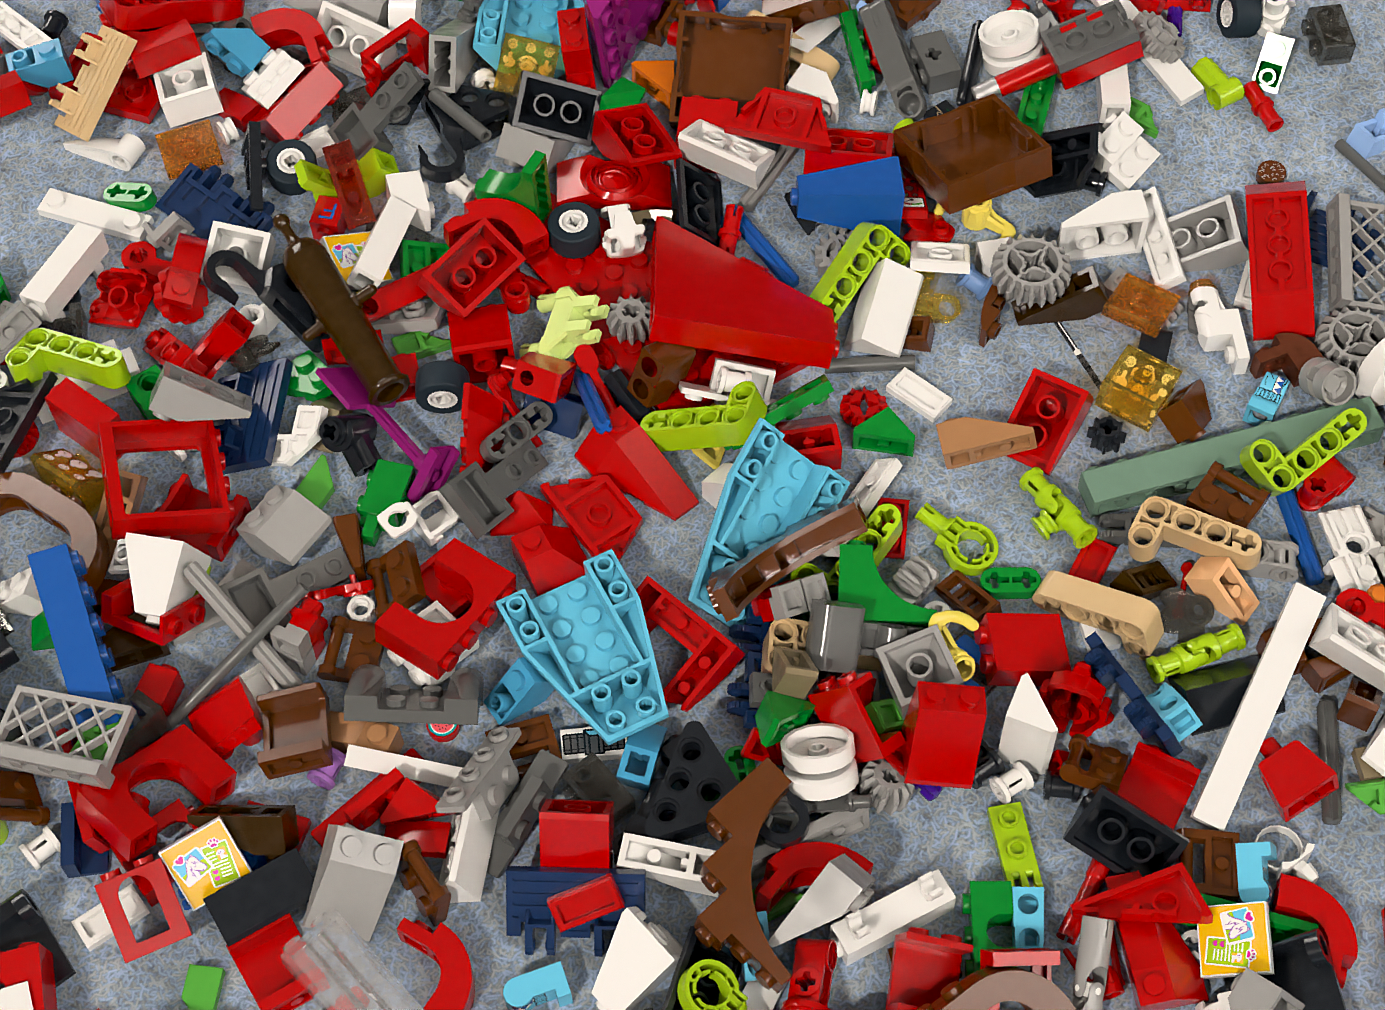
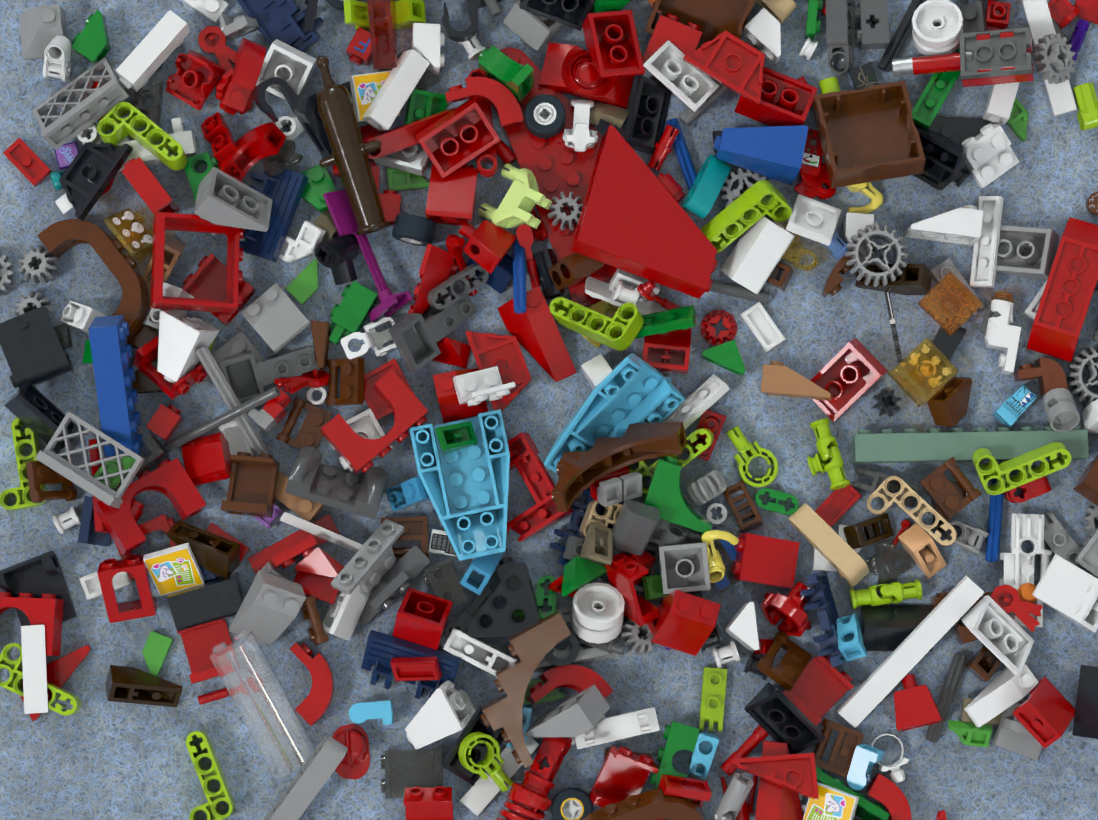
camera: 15 degrees right, 25 degrees up
(559, 598) = (456, 436): none -> green slope
(581, 531) = (480, 386): none -> white bracket
(759, 367) = (646, 291): none -> red piece
(797, 256) = (707, 186): none -> teal beam

